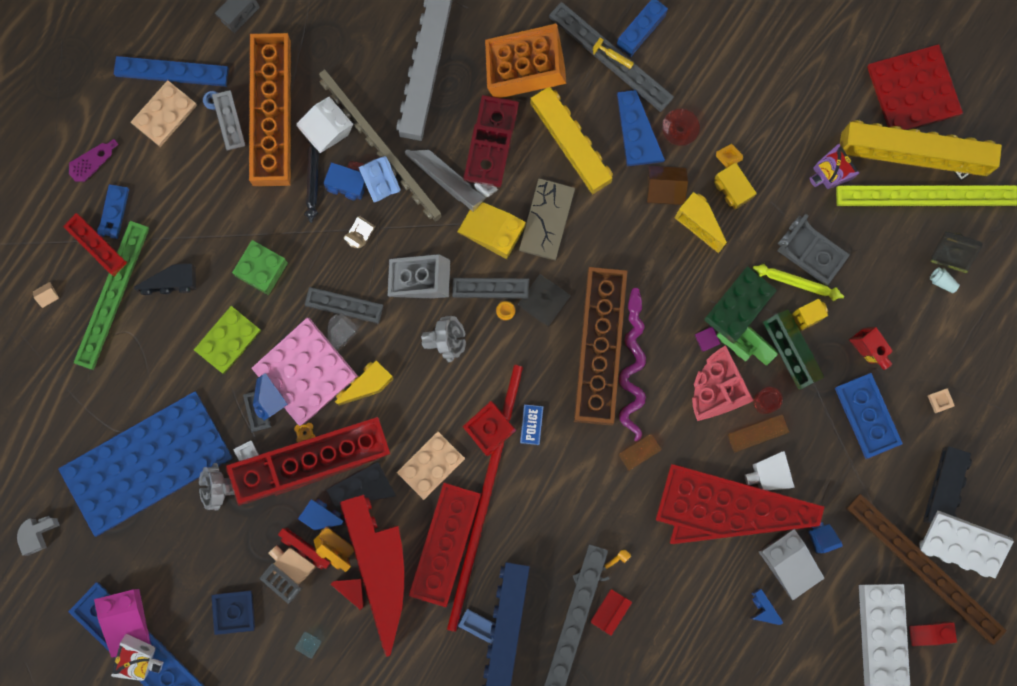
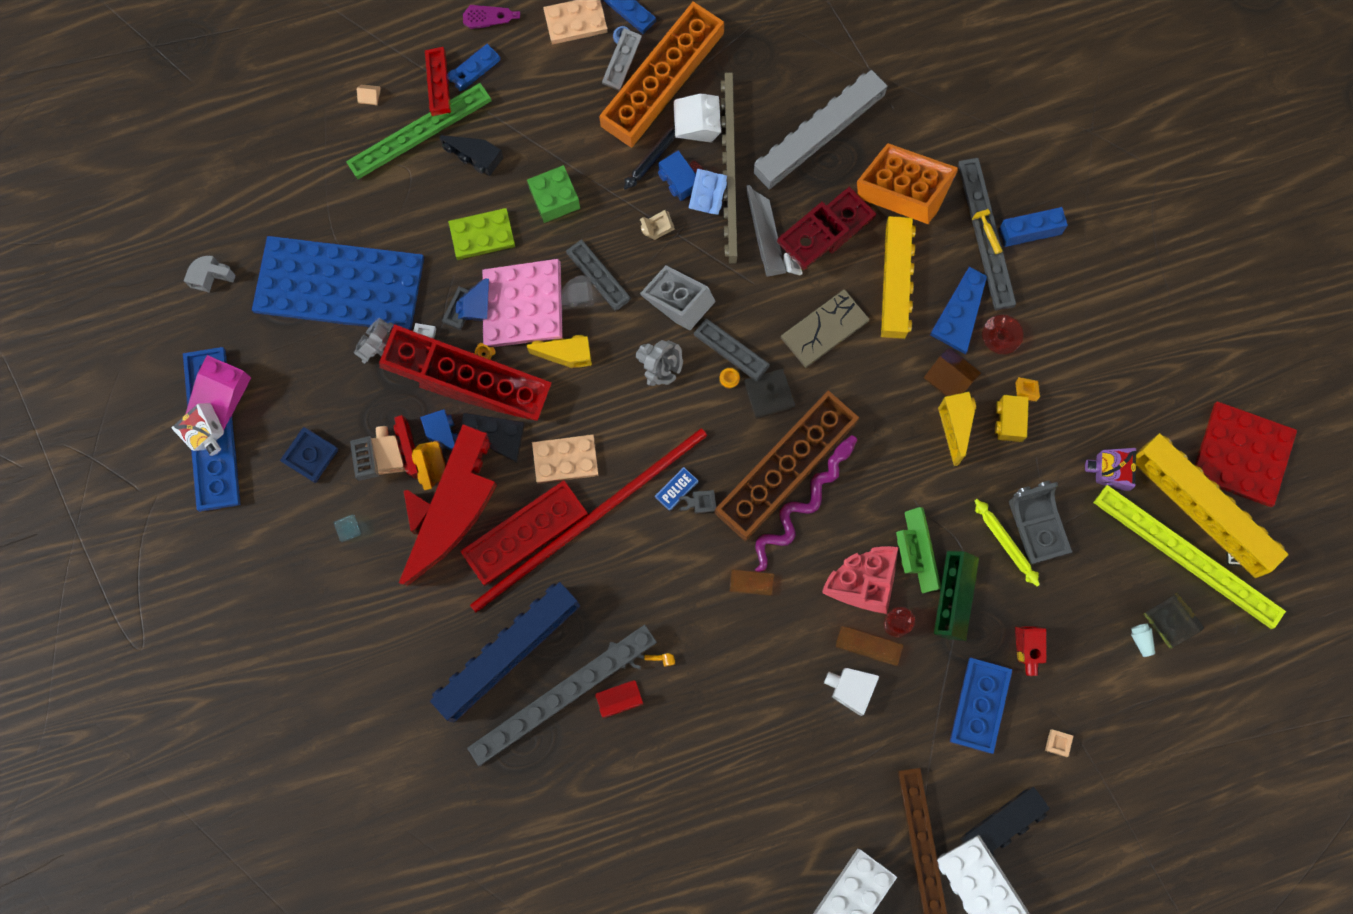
camera: 45 degrees right, 5 degrees down
(477, 625) = (496, 618): medium blue tile -> none
(489, 428) = (637, 463): red plate -> none
(492, 229) = (772, 303): yellow slope -> none
(558, 420) = (701, 502): none -> dark grey plate
(707, 339) = (886, 531): magenta tile -> none
(718, 508) = (780, 679): red wing -> none
(740, 305) = (938, 521): dark green plate -> none
(767, 613) = (755, 808): blue slope -> none
(792, 563) = (810, 782): light grey slope -> none
(810, 314) = (994, 575): yellow brick -> none
(824, 538) = (856, 780): blue slope -> none

